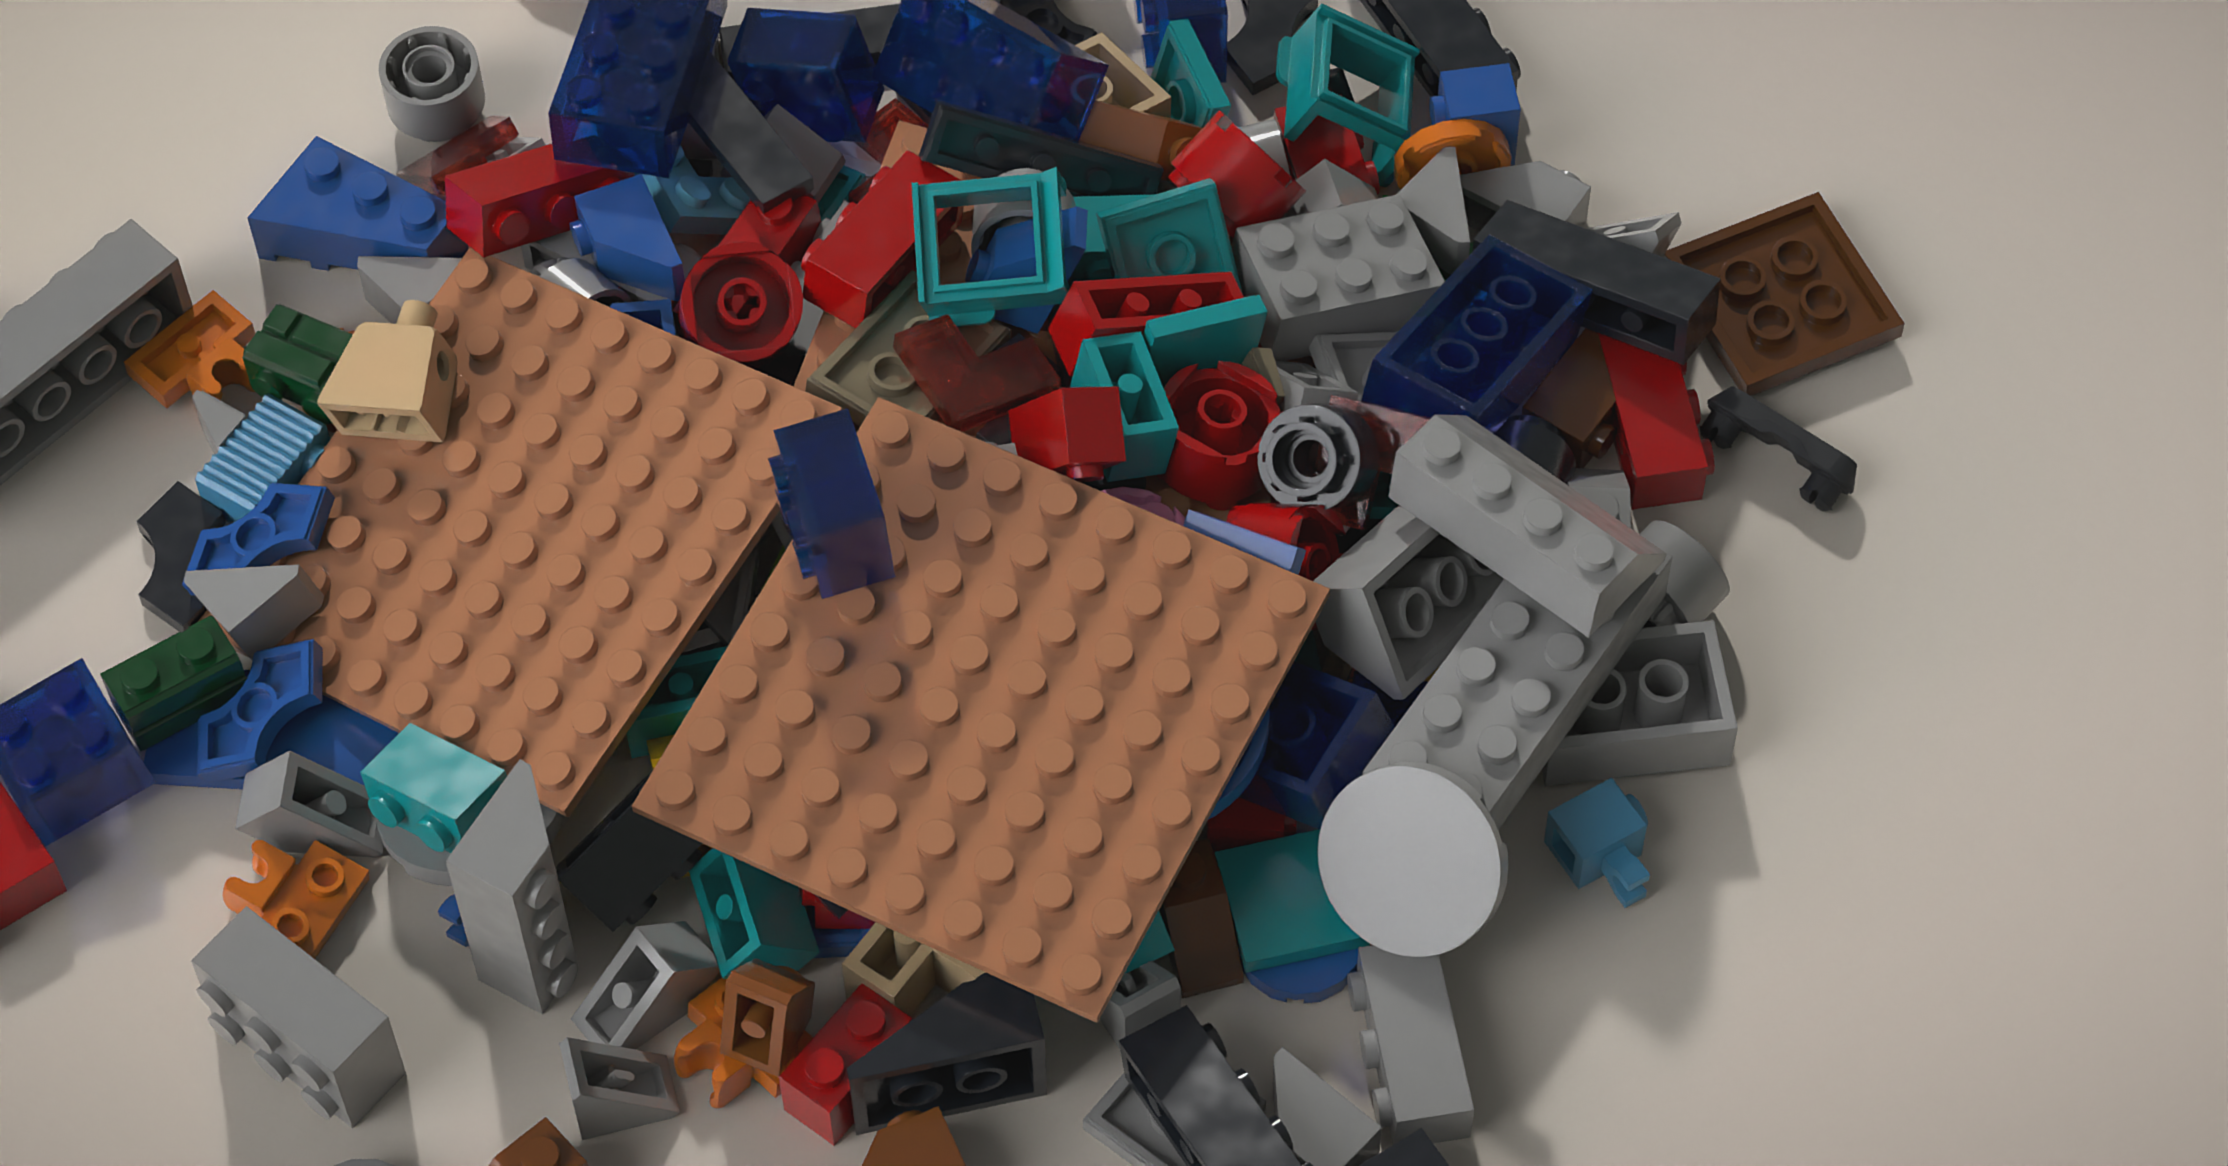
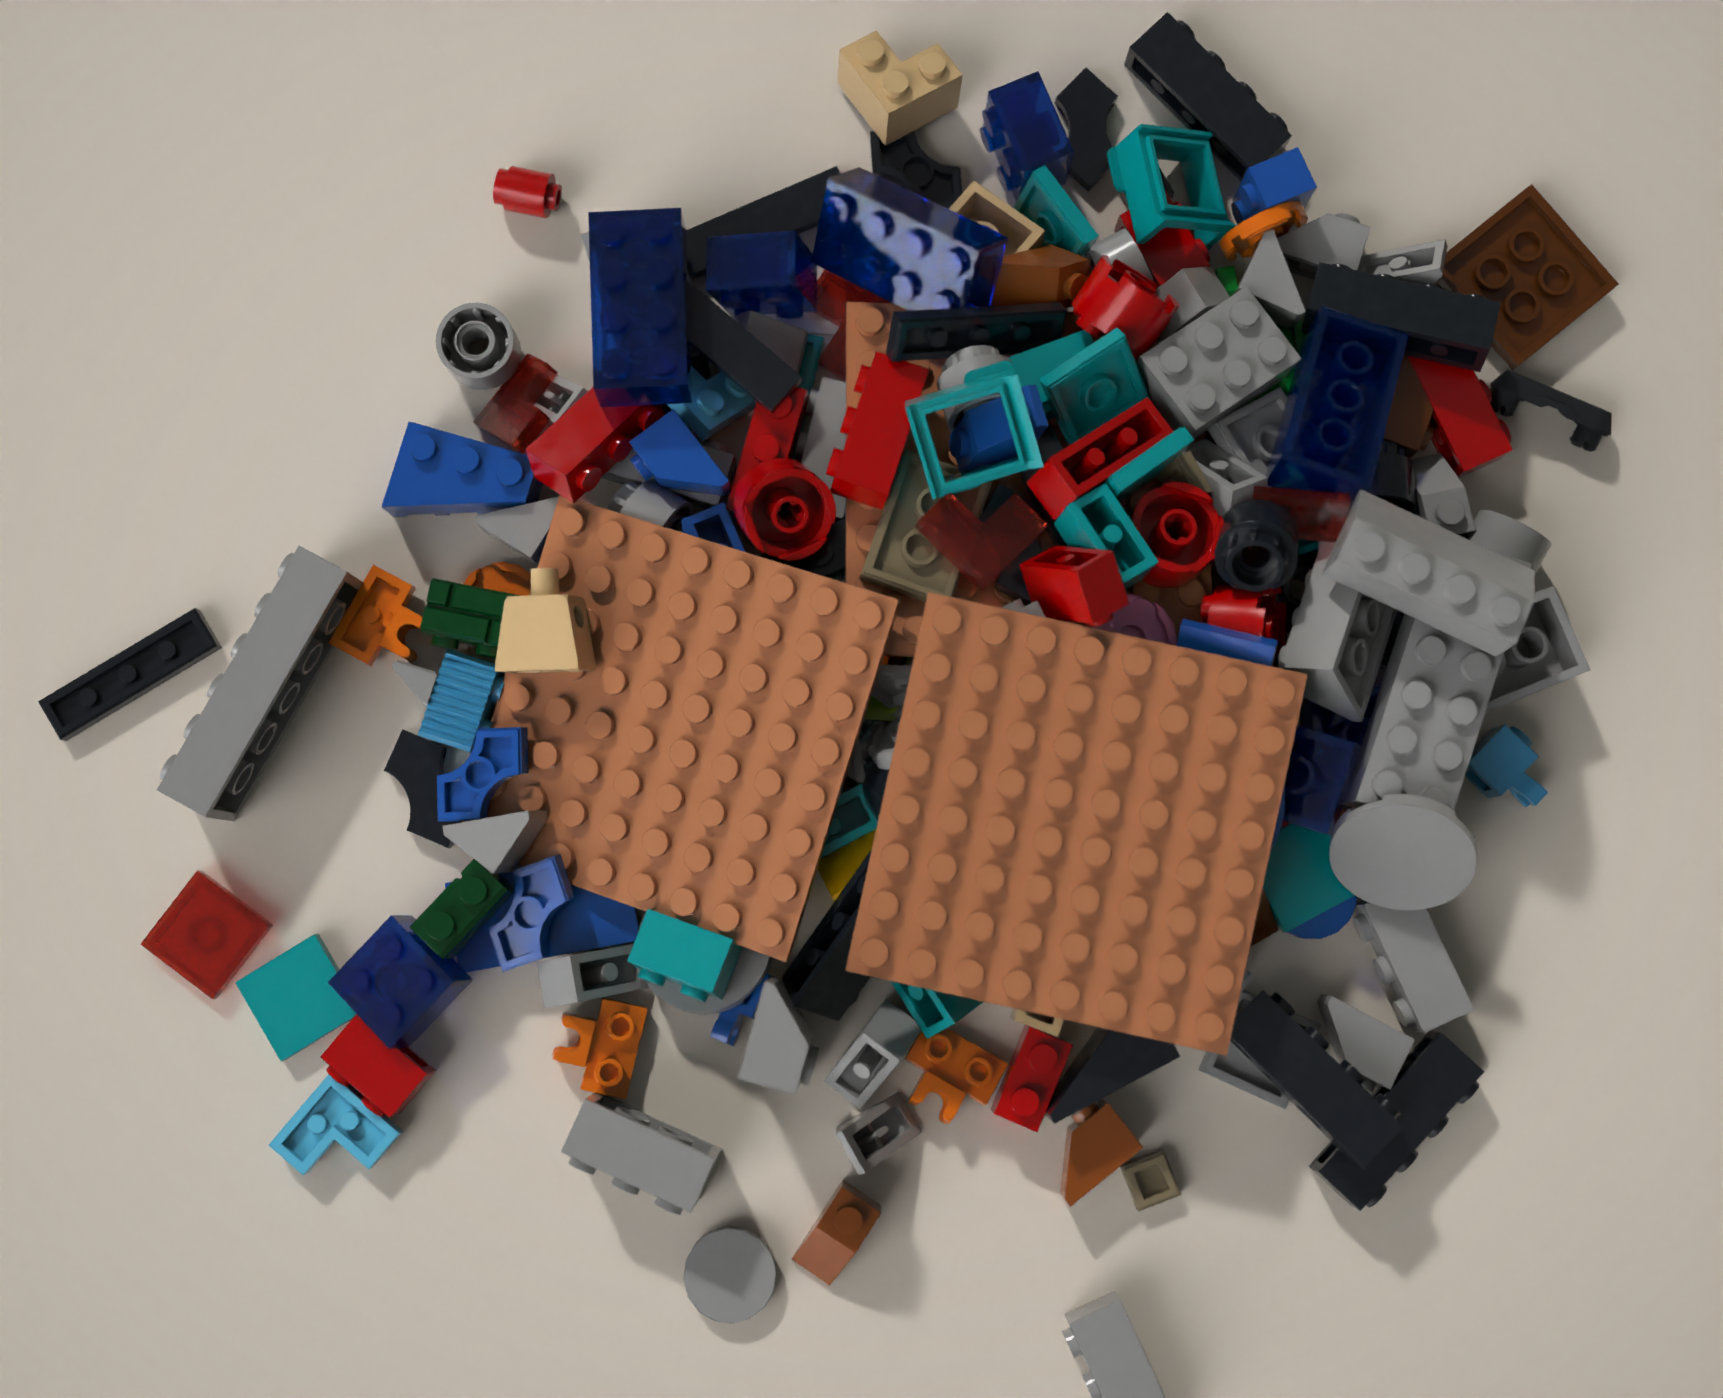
camera: 15 degrees left, 25 degrees up
(765, 1014) = (974, 1068): dark orange slope -> none
(831, 504) = (935, 718): clear blue brick -> none

